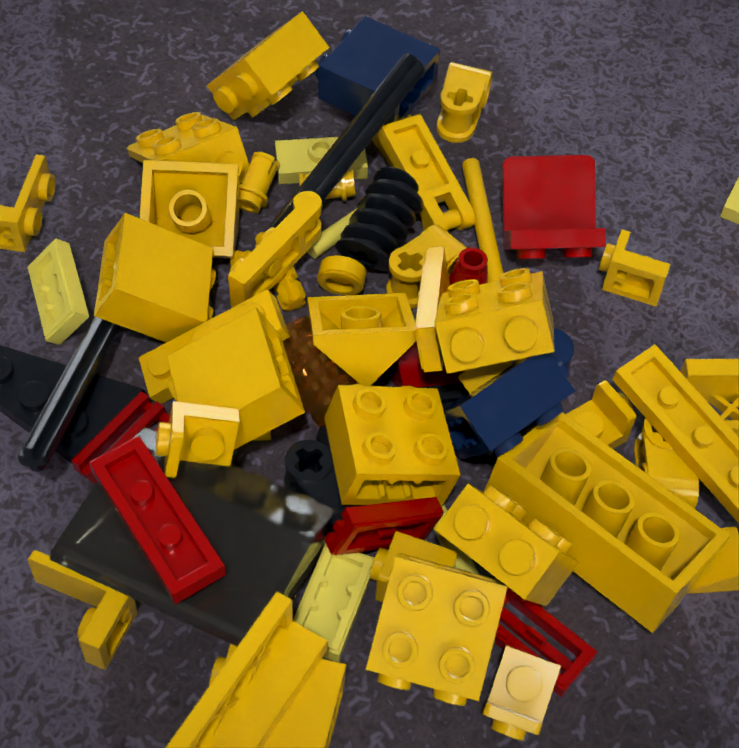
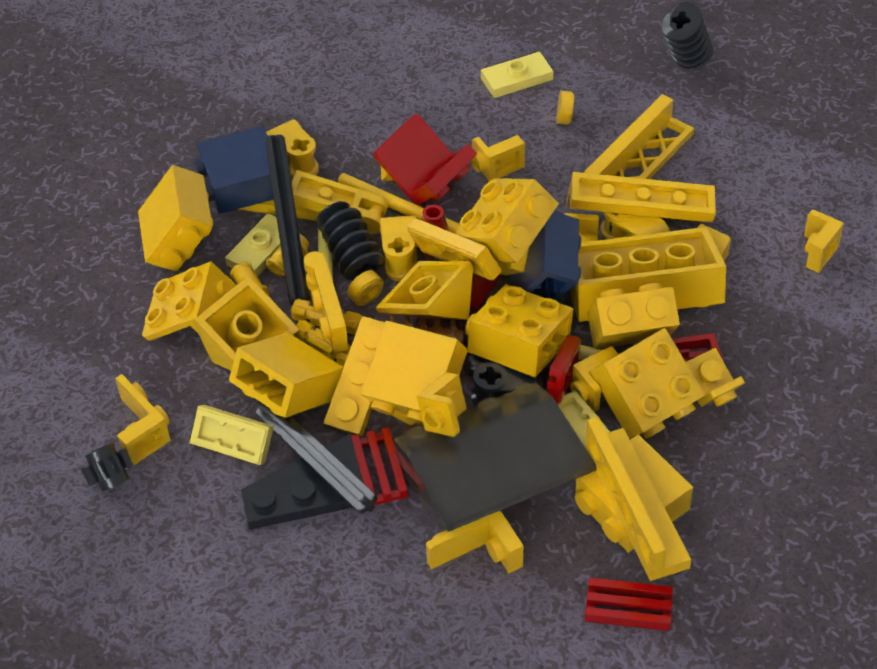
camera: 45 degrees left, 5 degrees down
(157, 519) = (480, 454): red plate -> none

